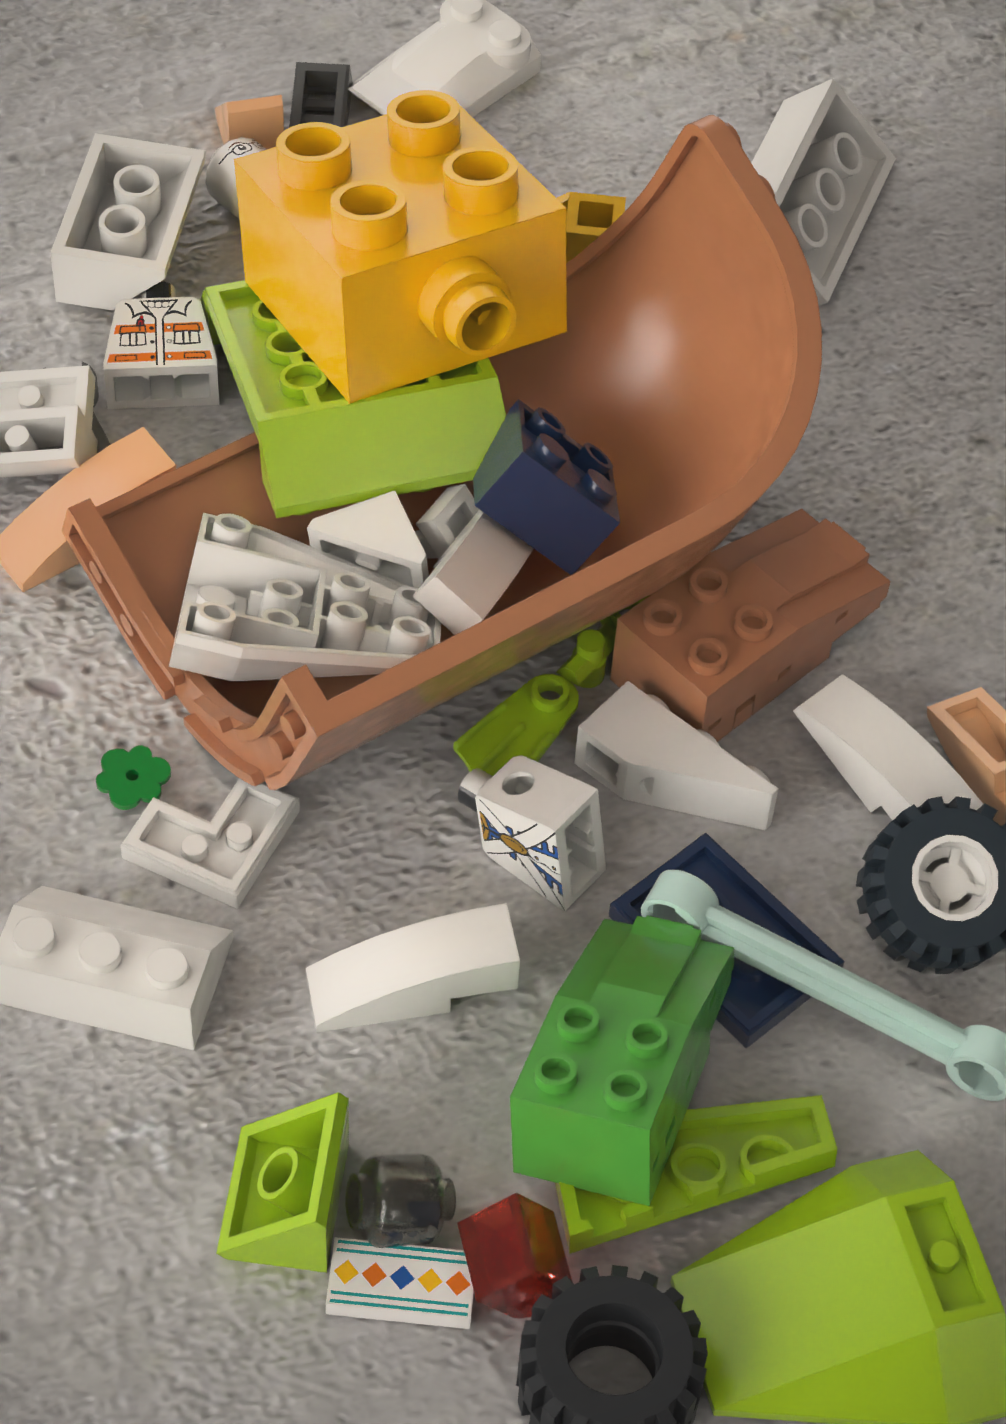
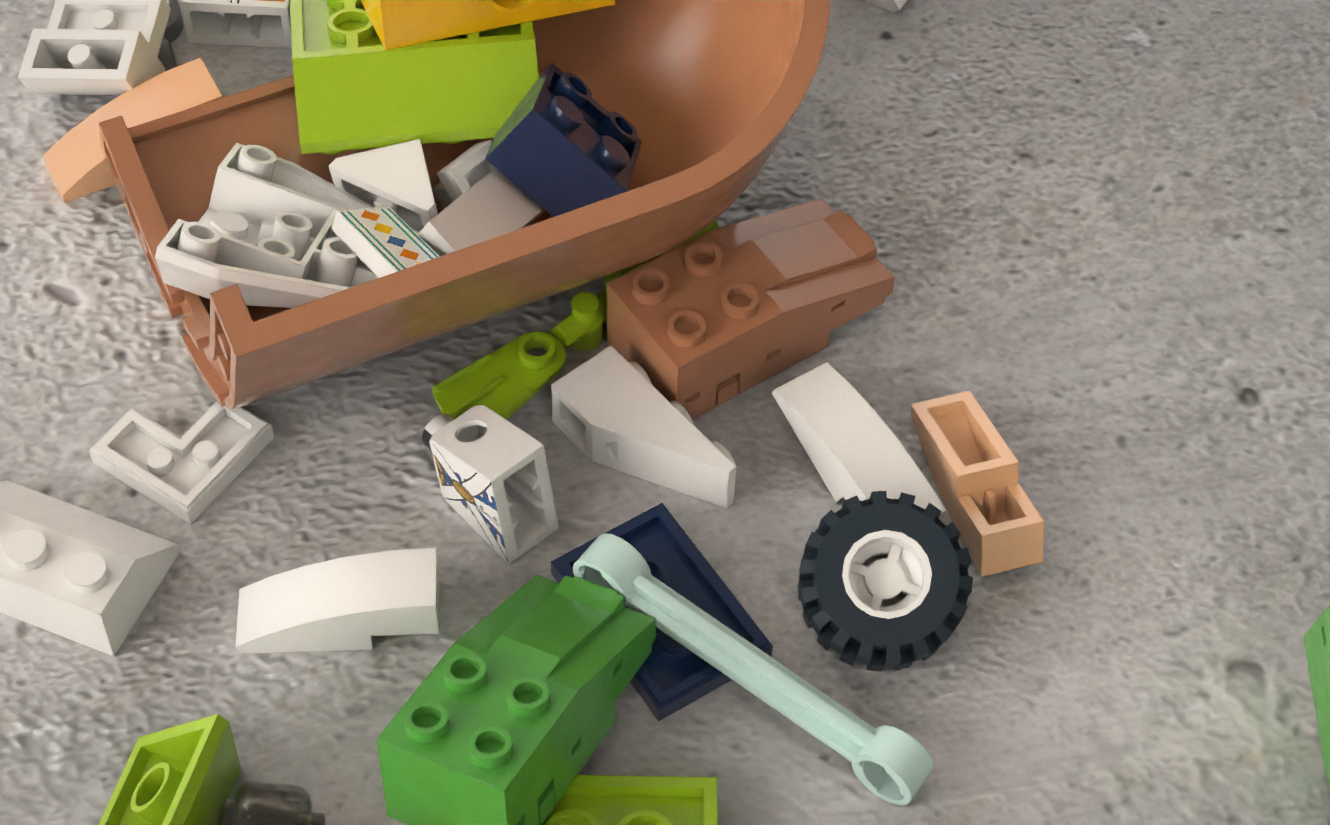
camera: 10 degrees right, 0 degrees up
(132, 776) = (118, 386): green plant -> none
(398, 607) = (381, 239): none -> white tile

